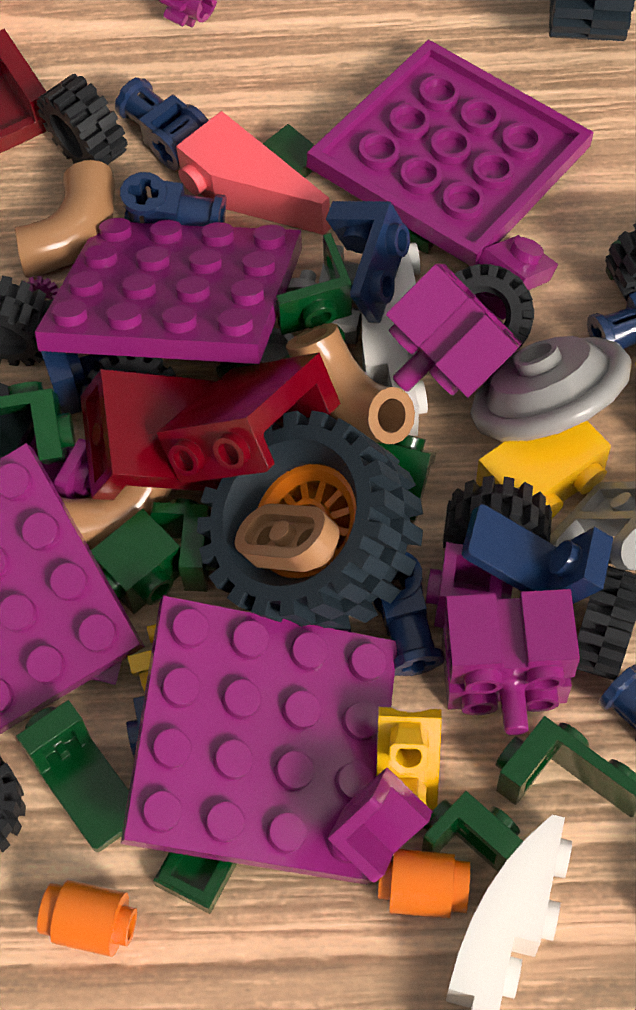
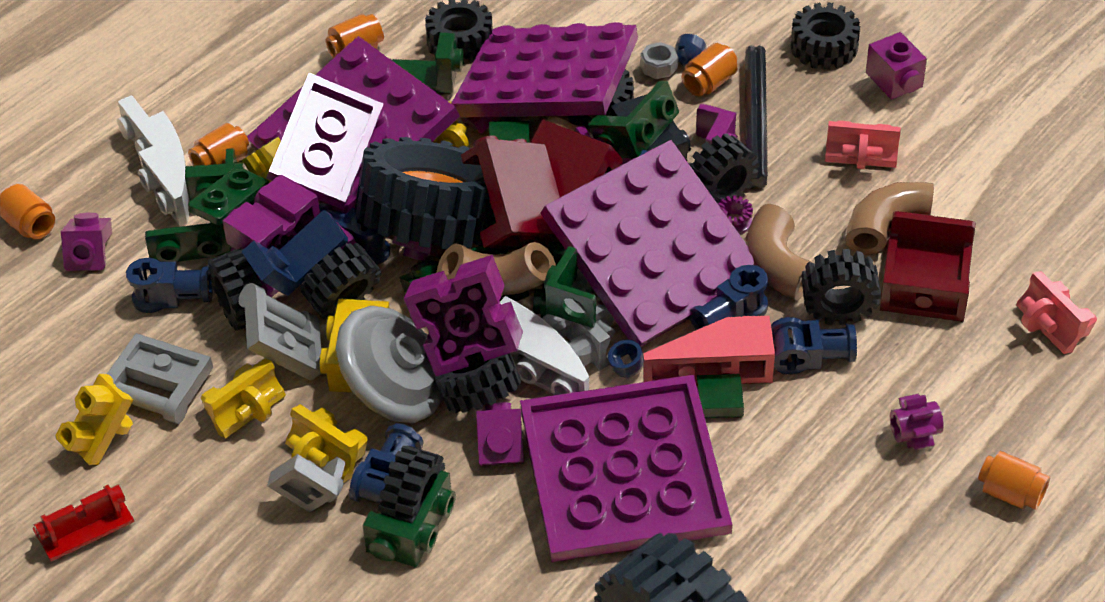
camera: 130 degrees right, 15 degrees down
(287, 537) = (421, 154): medium nougat plate -> none
(313, 237) = (635, 354): none -> dark blue hinge
(347, 685) = (326, 139): none -> plate
(378, 824) = (256, 121): magenta panel -> none
(383, 240) = (571, 342): dark blue bracket -> none
(507, 746) = (226, 195): none -> dark green bracket

